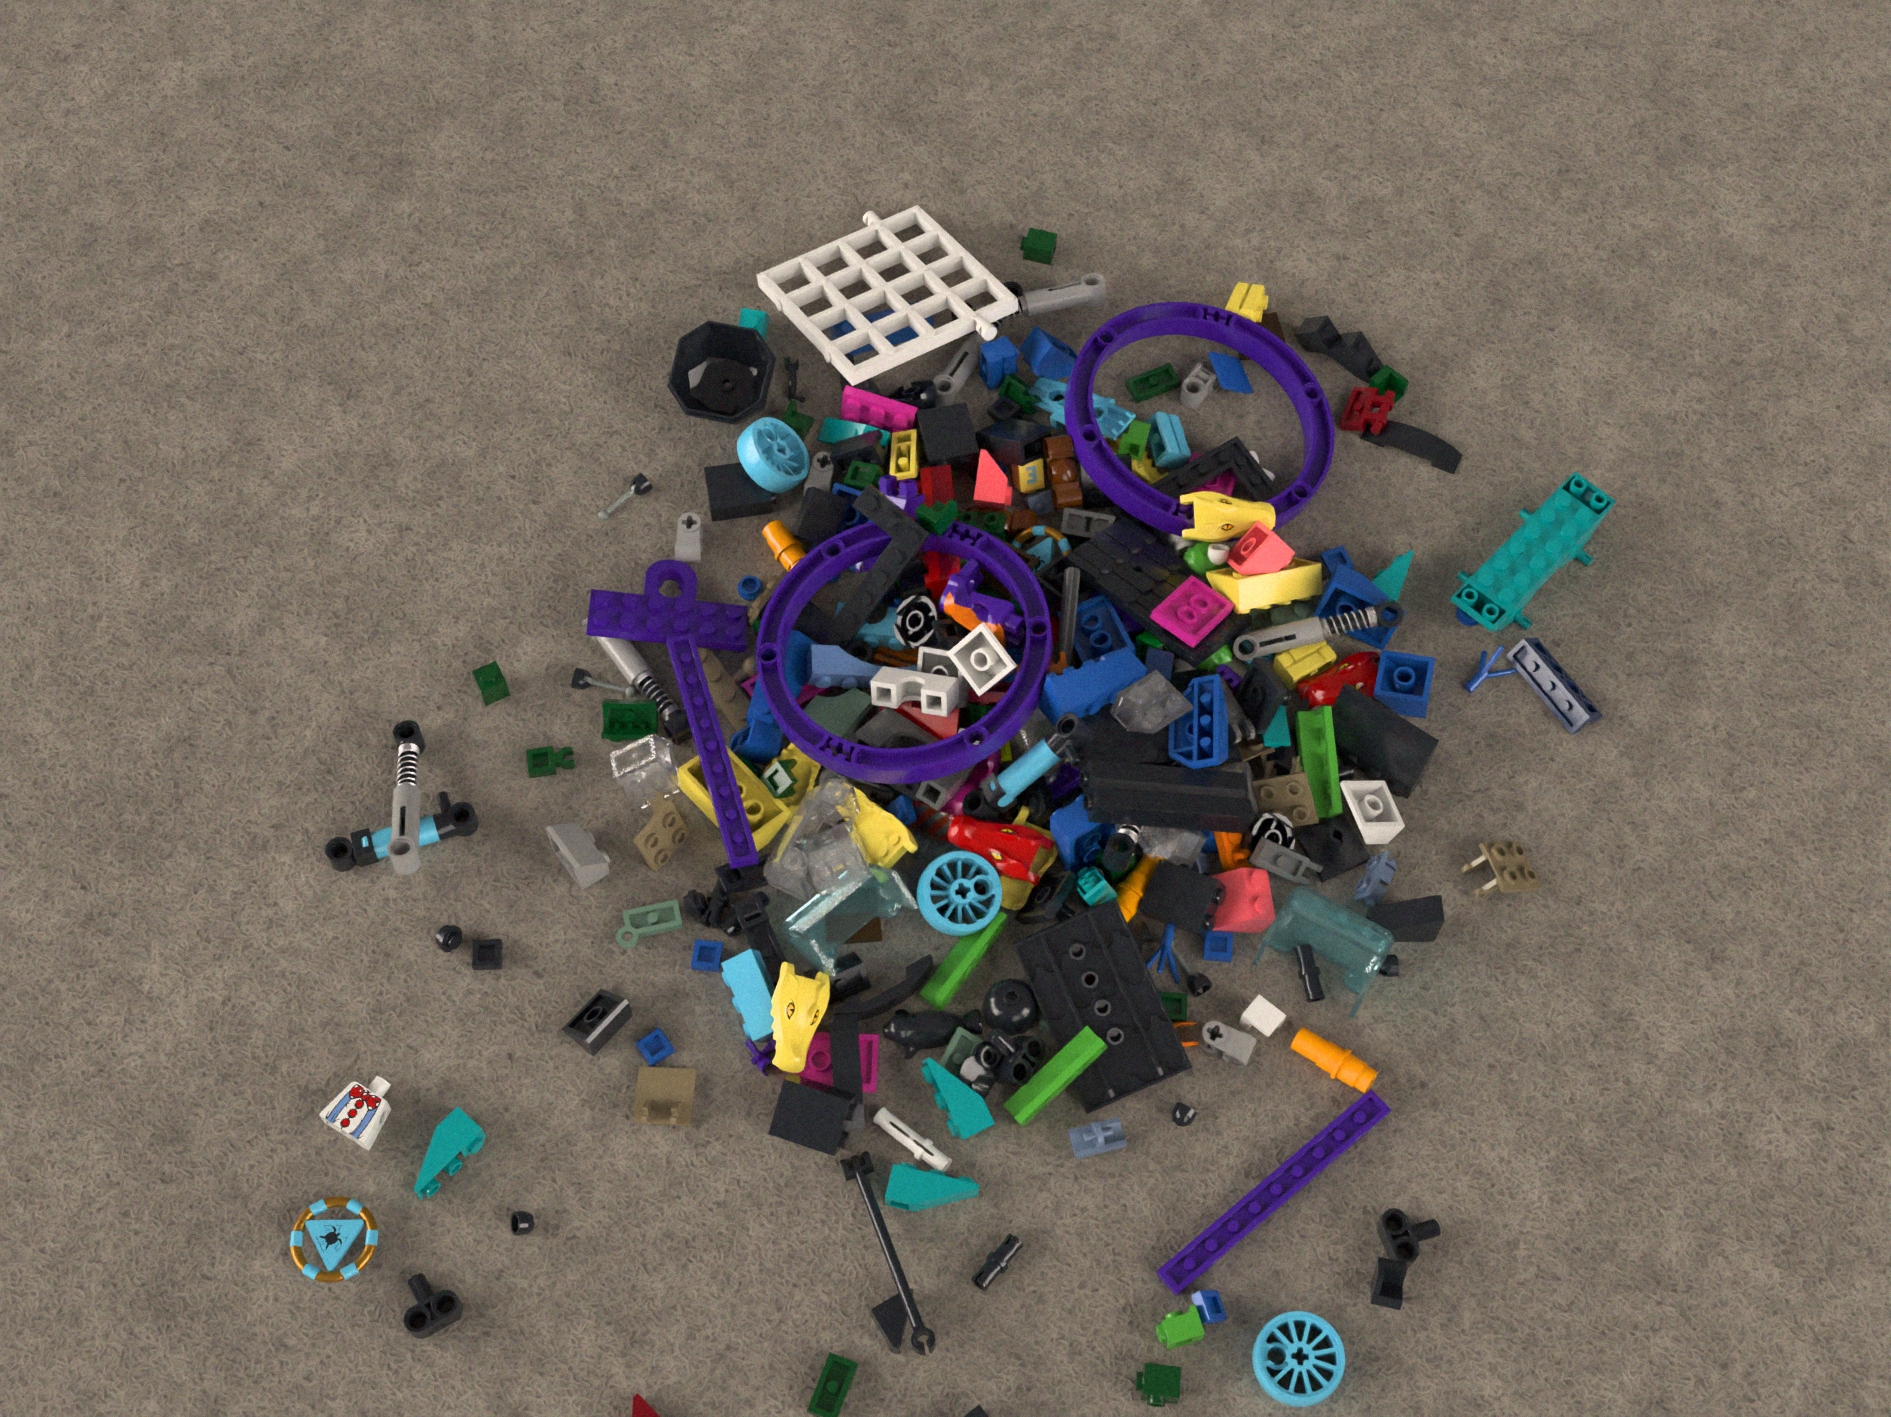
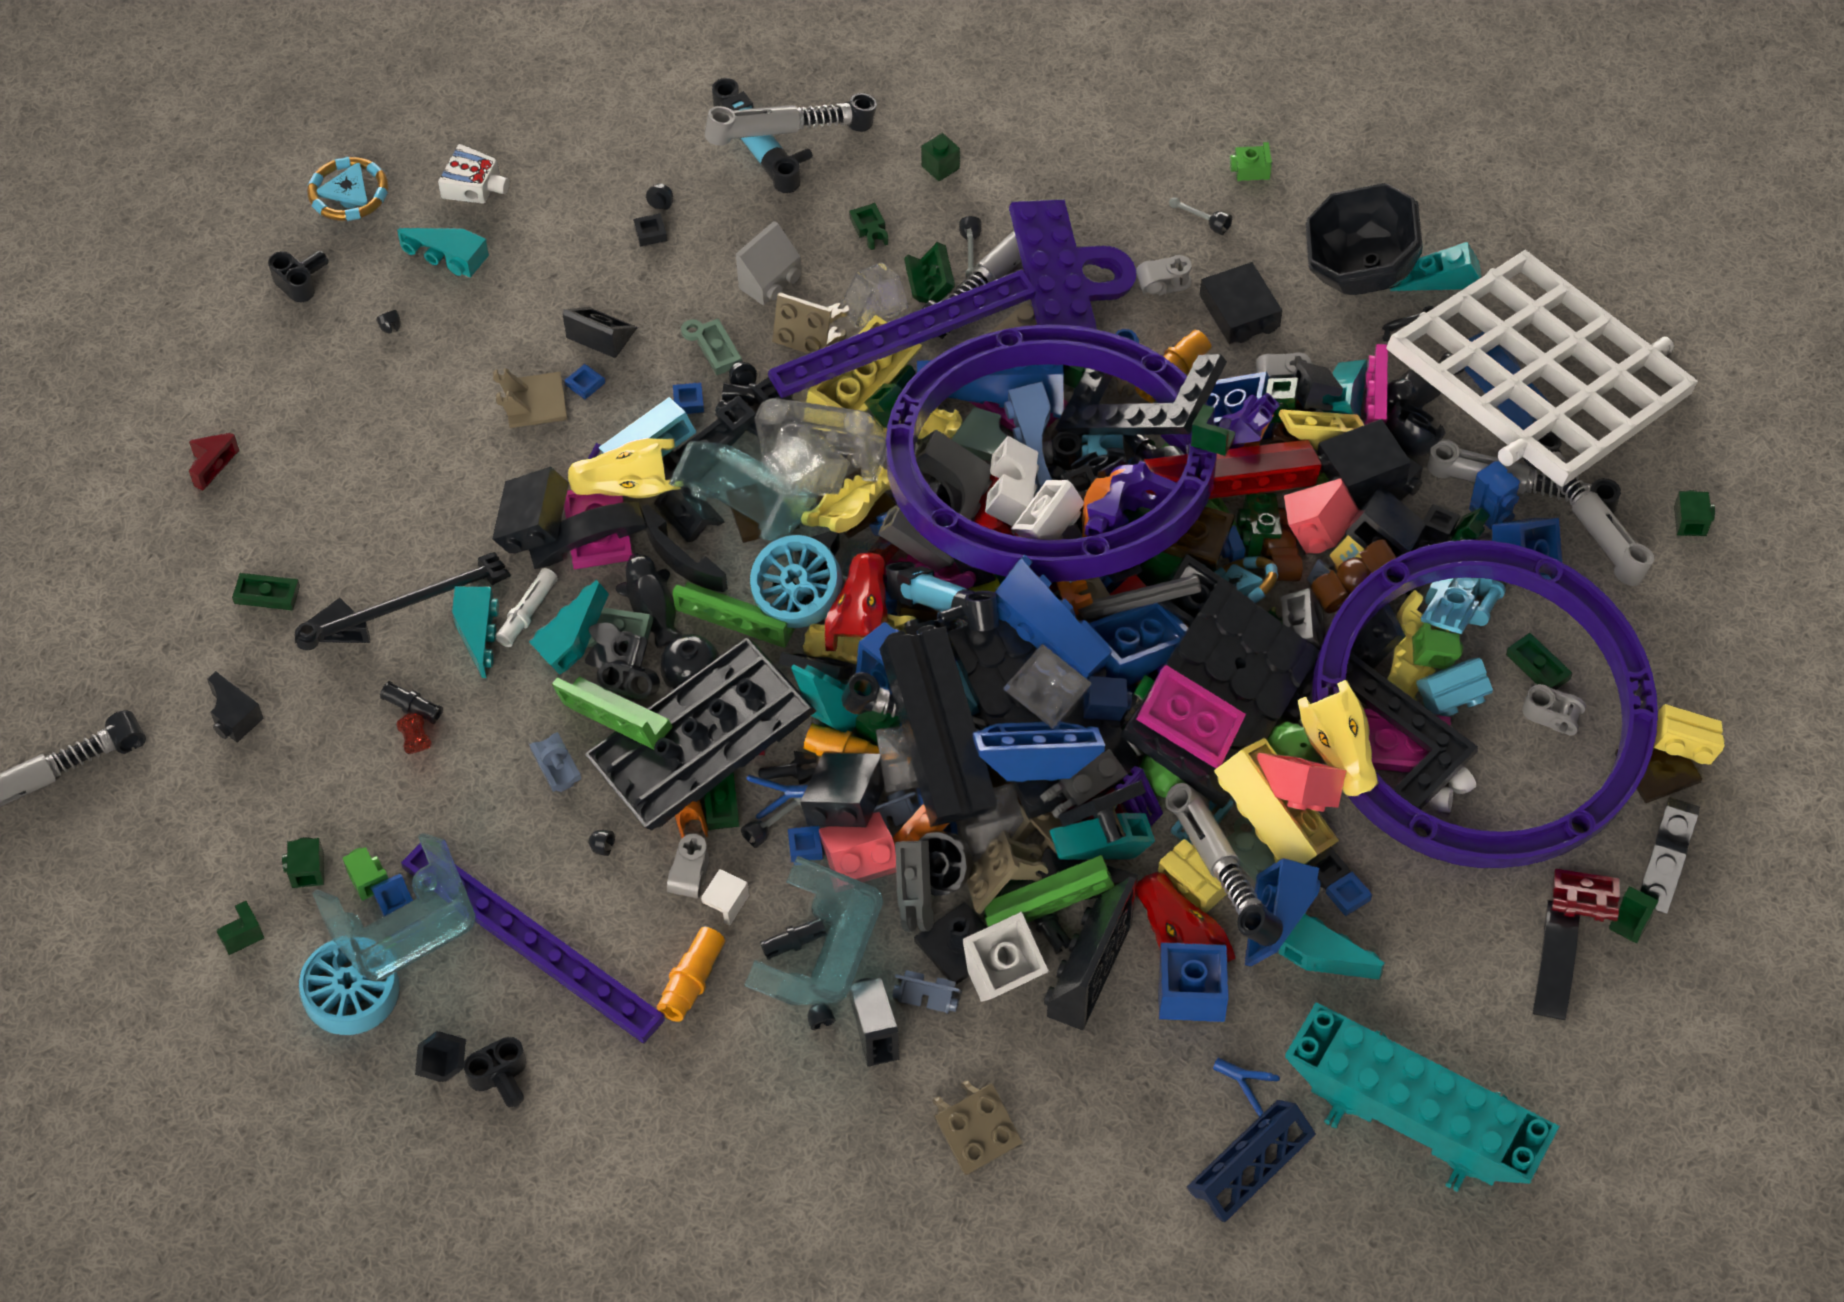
camera: 80 degrees right, 5 degrees down
(583, 443) = (1251, 162): none -> bright green brick
(773, 455) = (1311, 293): medium azure piece -> none
(797, 421) = (1351, 334): dark green panel -> none
(820, 516) = (1238, 369): black slope -> none
(1034, 1264) = (413, 733): none -> clear red bush
(1218, 553) = (1293, 743): white hinge -> none
(1230, 373) = (1583, 739): blue piece -> none
(1257, 1285) = (412, 931): none -> clear light blue windscreen

